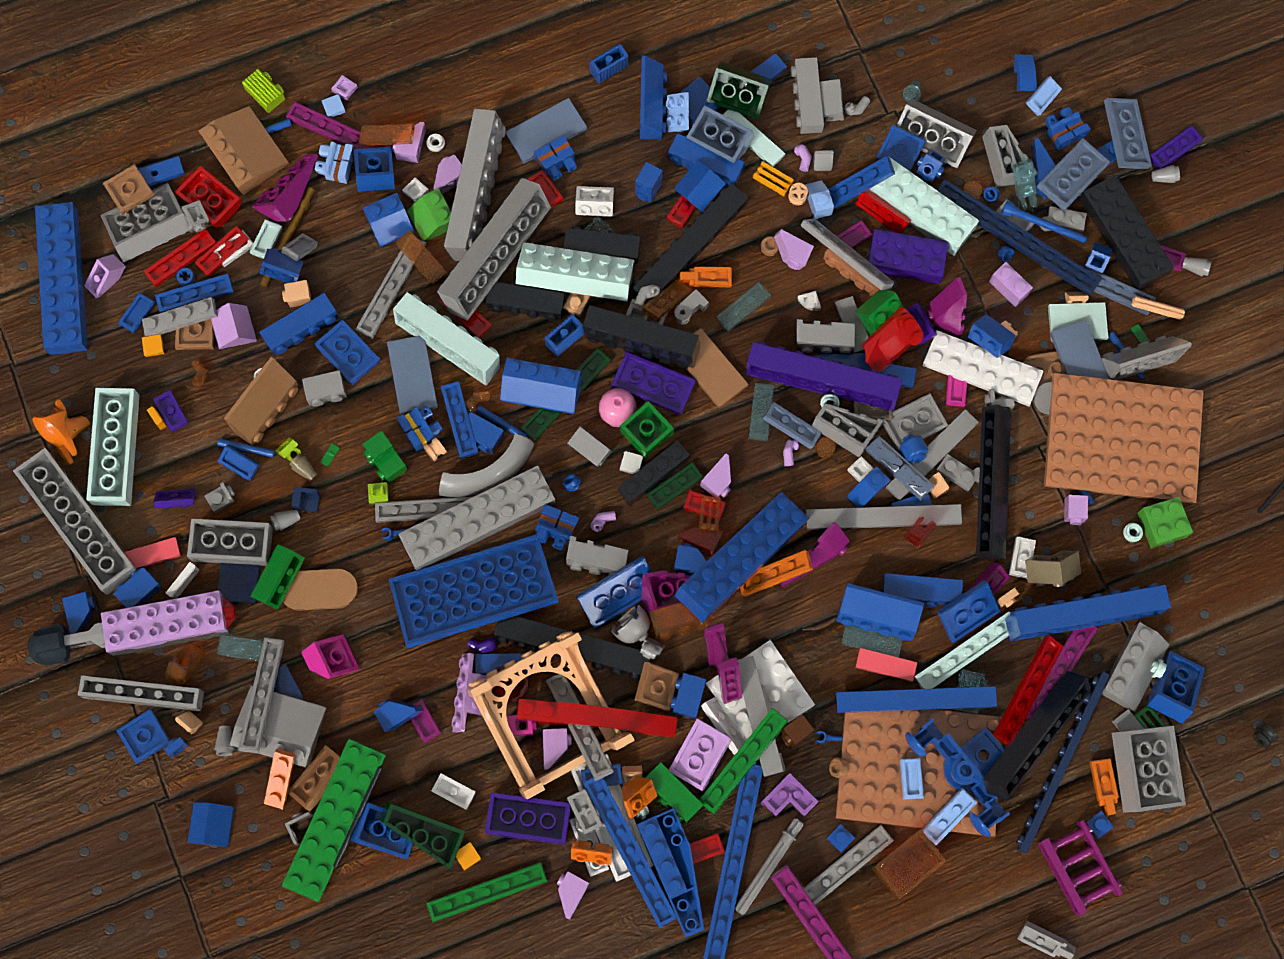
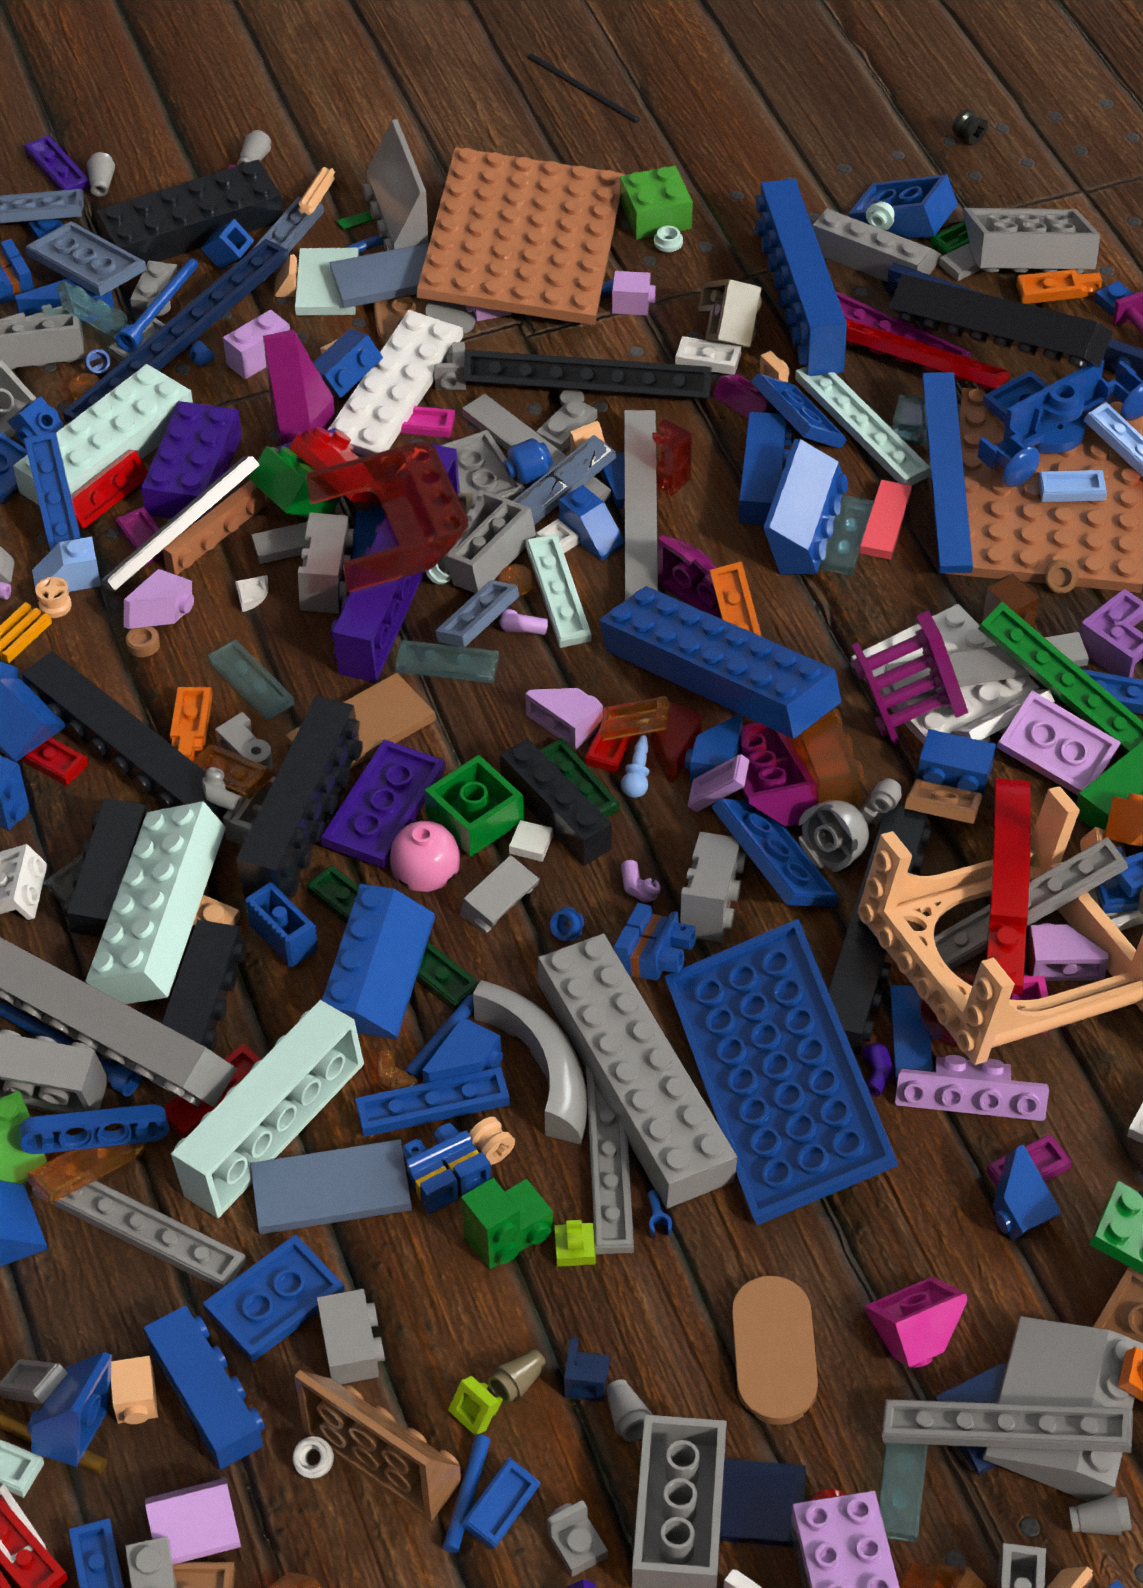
camera: 85 degrees left, 25 degrees down
(277, 577) = (754, 1412): green brick -> none
(329, 455) = (489, 1336): green piece -> none
(433, 254) = (94, 1134): none -> blue beam
(665, 561) = (718, 783): none -> lavender tile
(675, 518) = (634, 781): none -> light blue bar
(816, 471) = (558, 590): none -> light aqua tile
(836, 379) = (415, 501): none -> clear red windscreen

